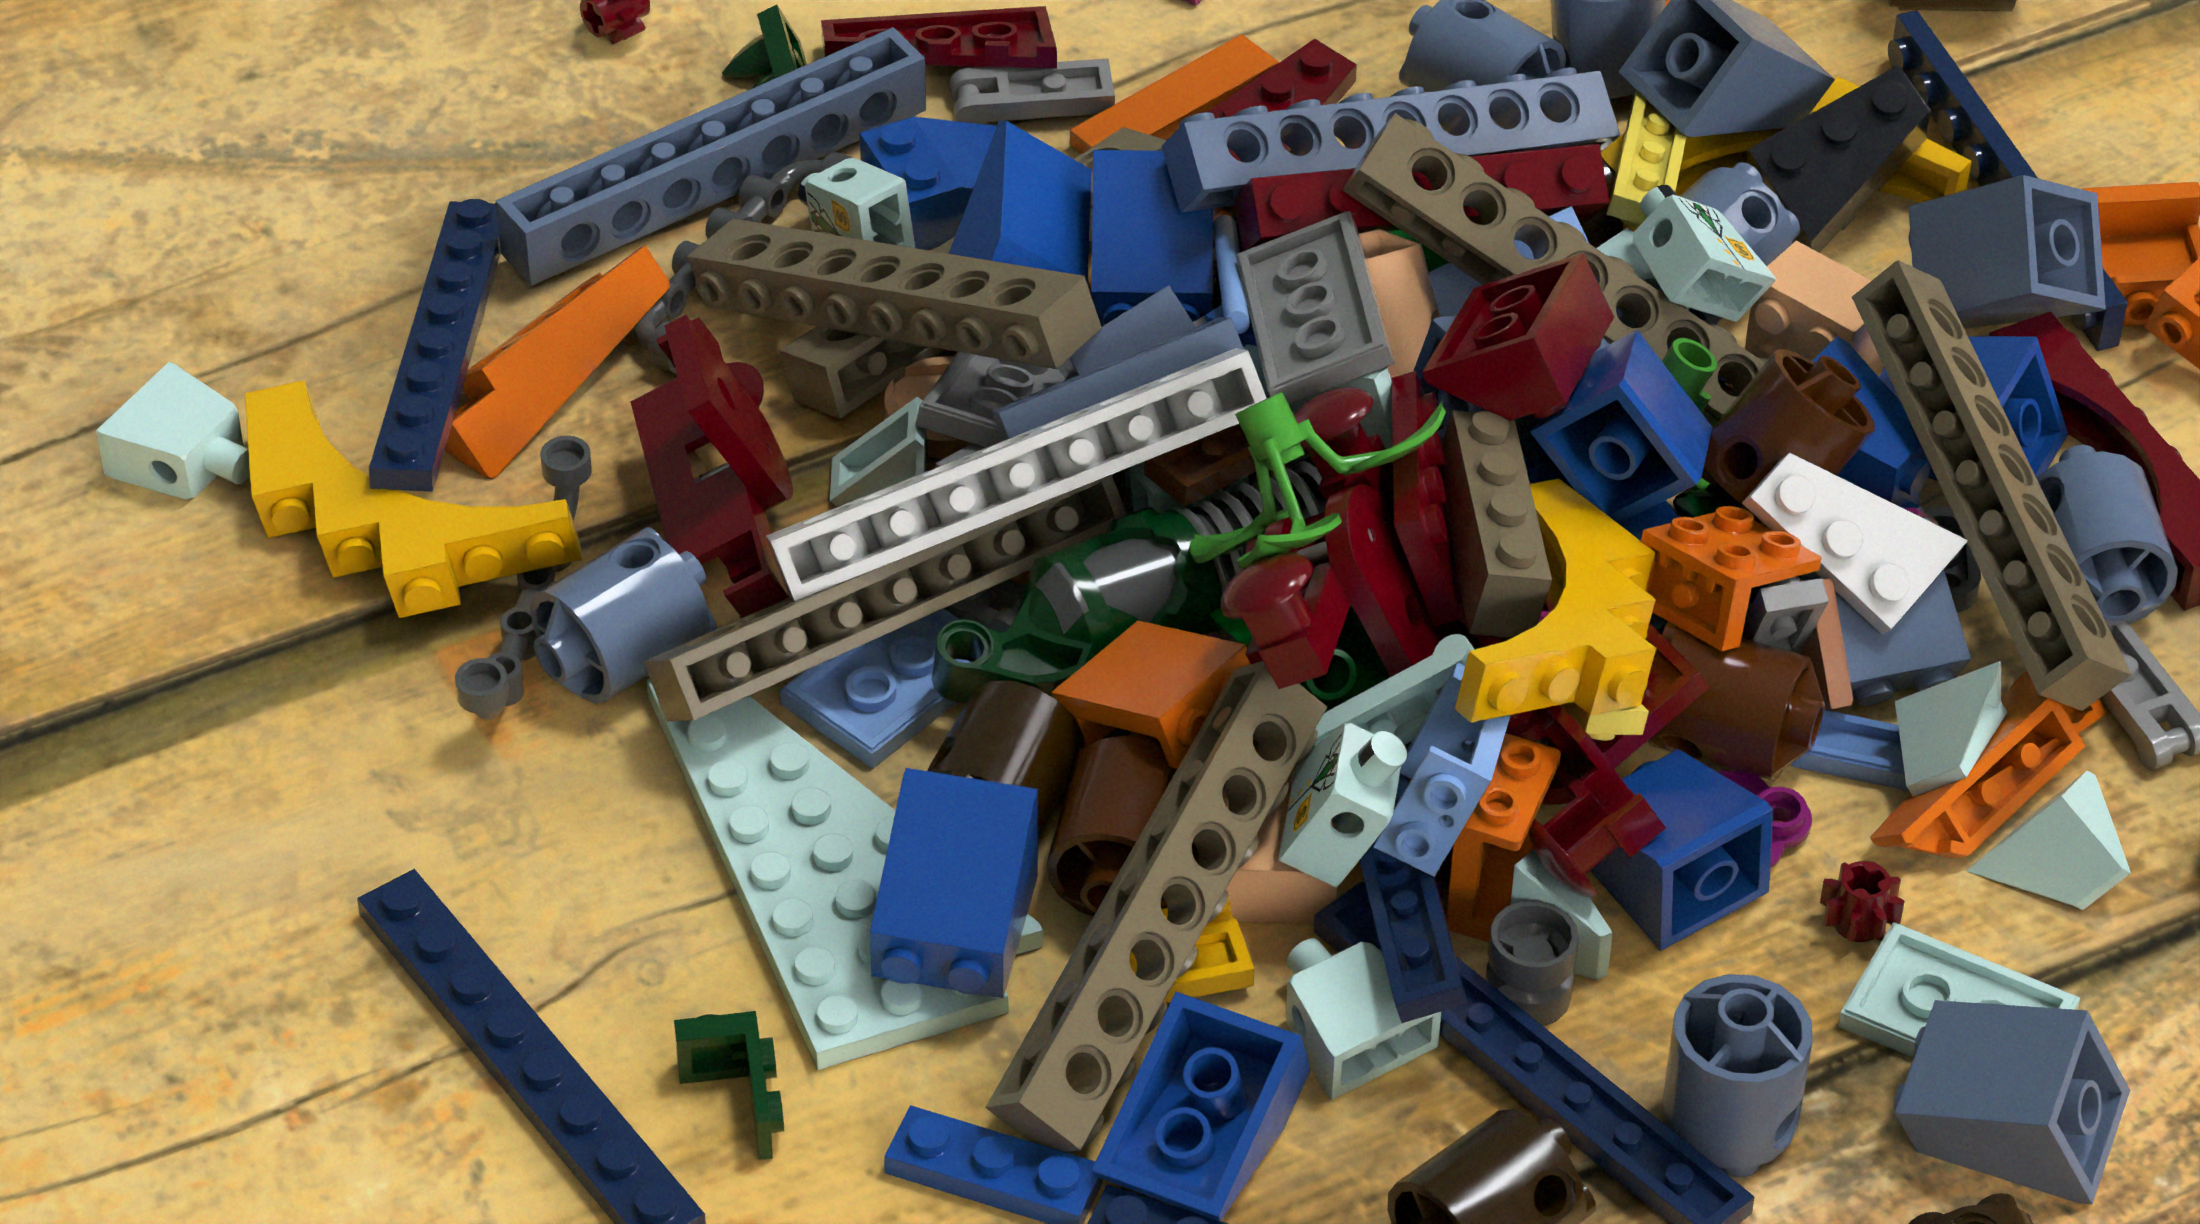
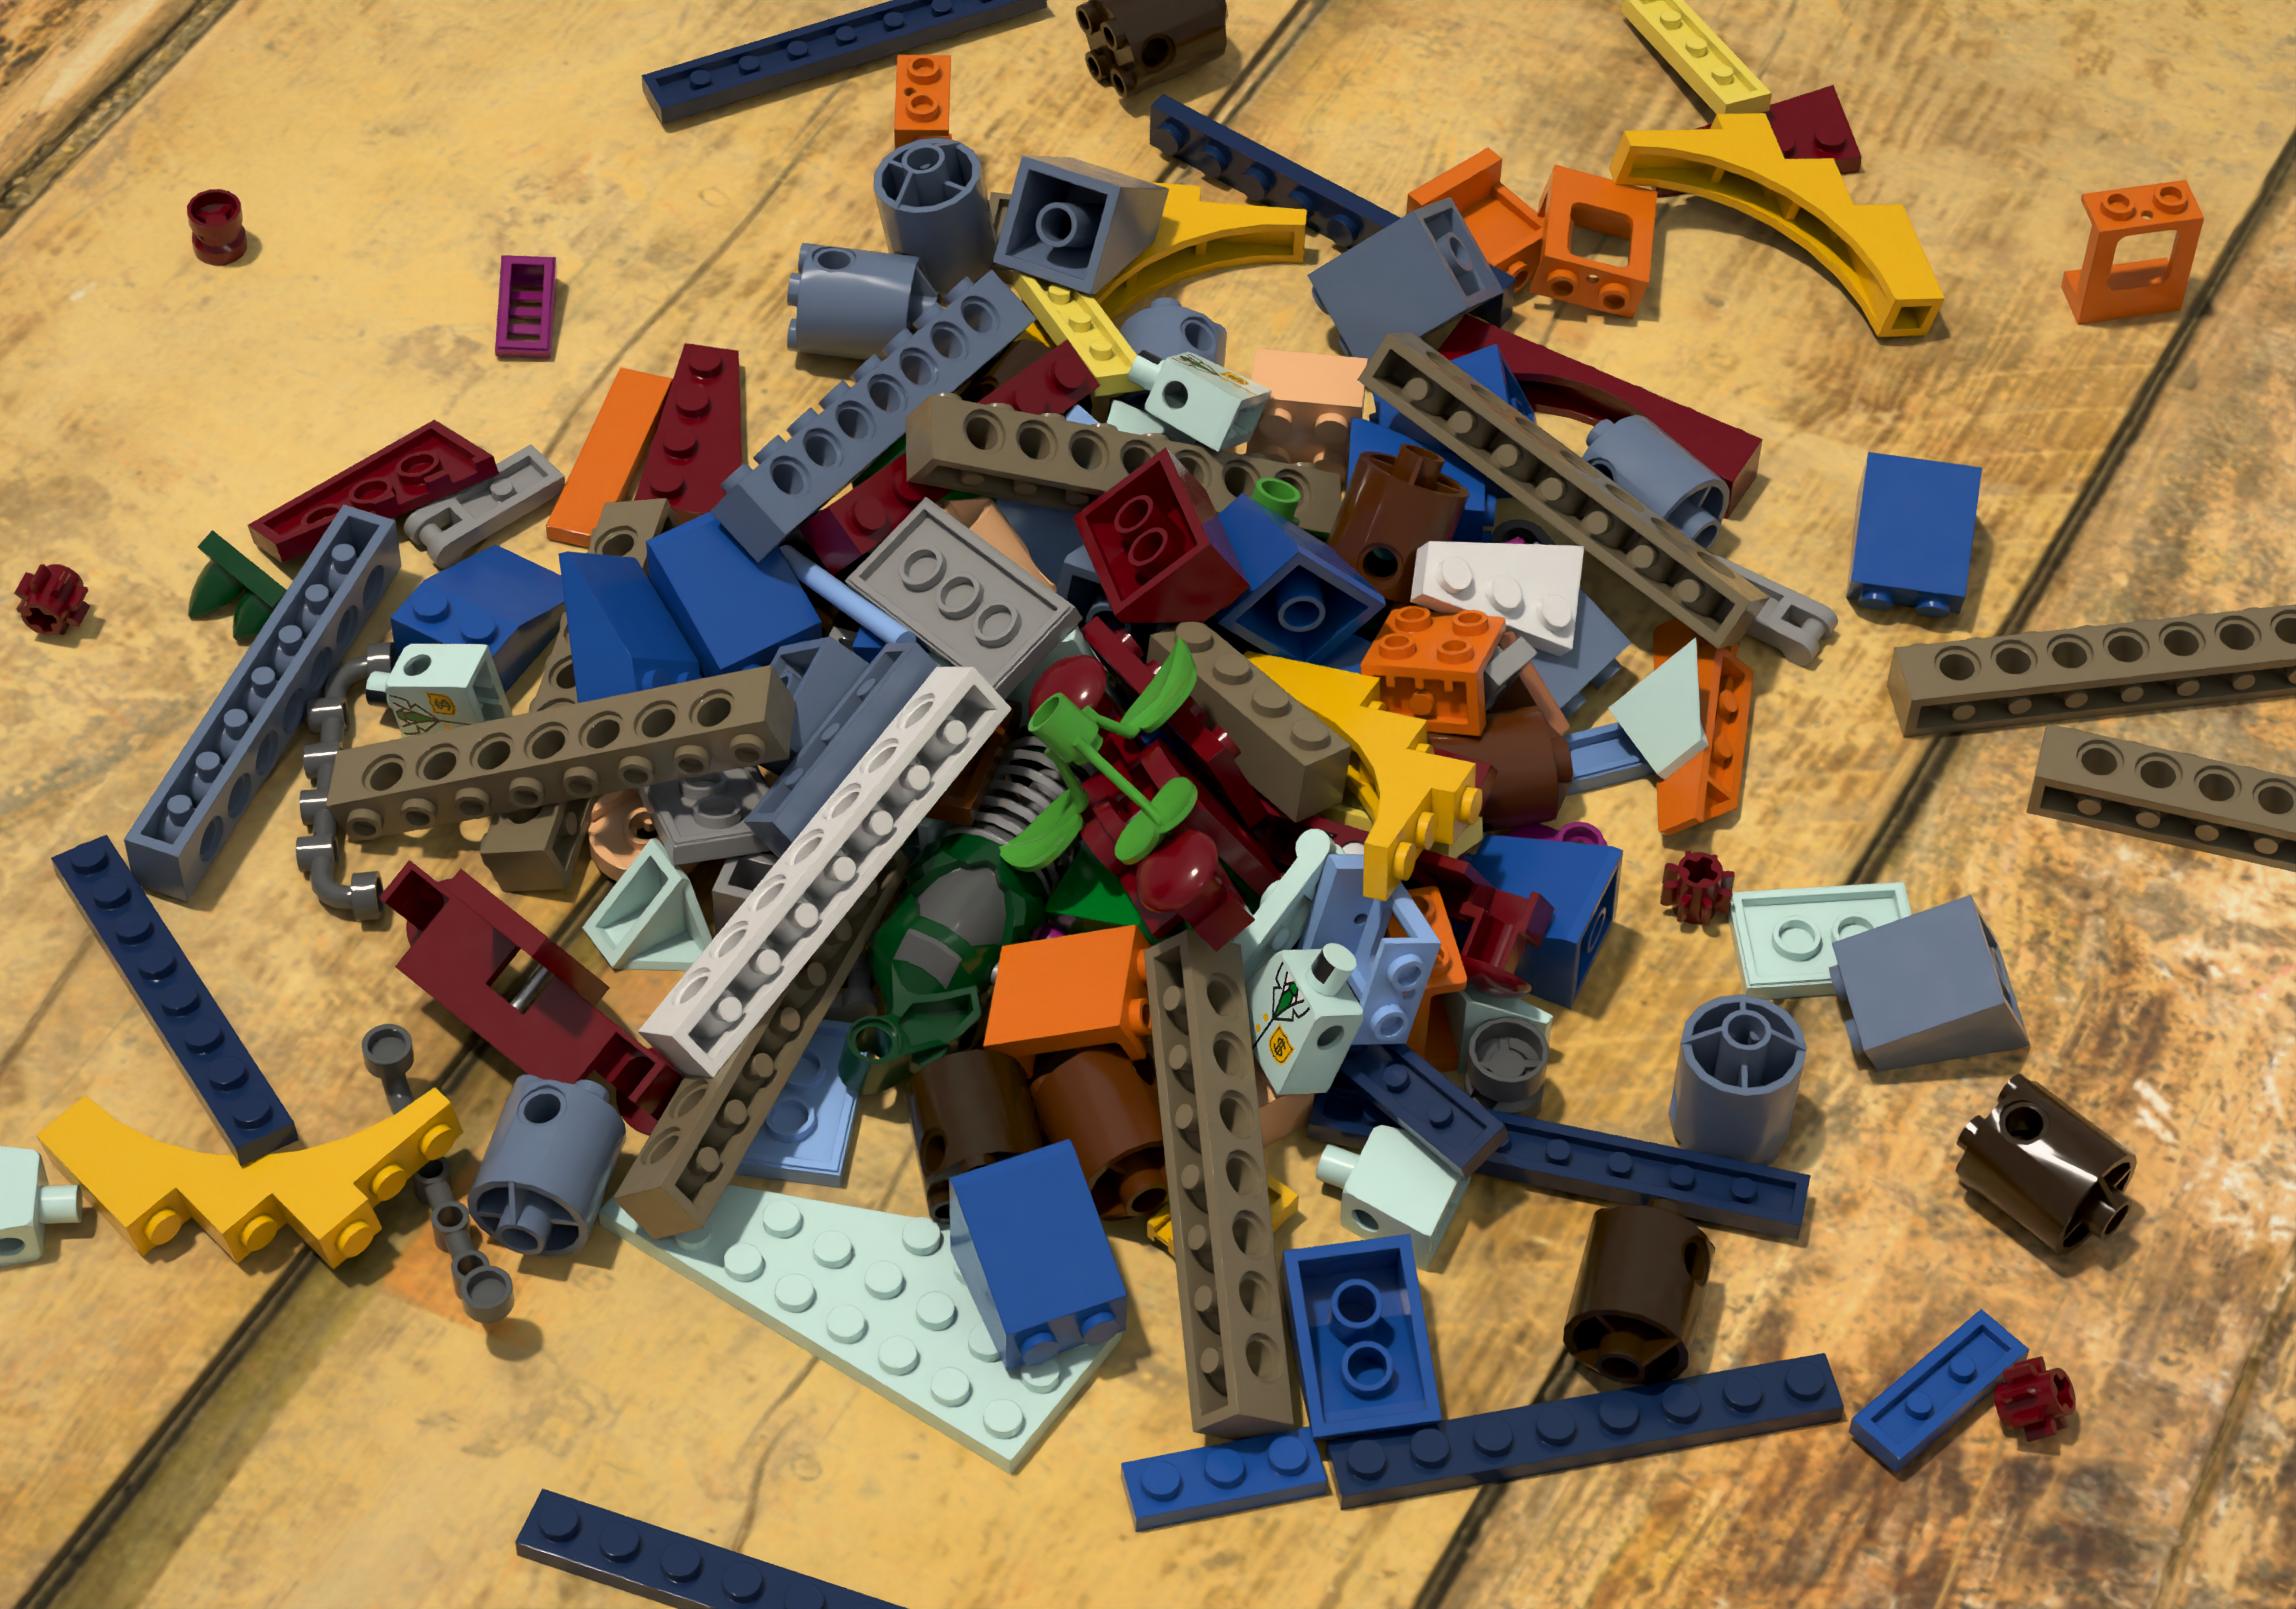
camera: 35 degrees left, 5 degrees up
(547, 361) = (270, 955): orange wedge -> none
(731, 1048) = (949, 1489): dark green bracket -> none
(1842, 154) = (1218, 252): black wedge -> none
(2062, 849) = (1799, 765): light aqua slope -> none

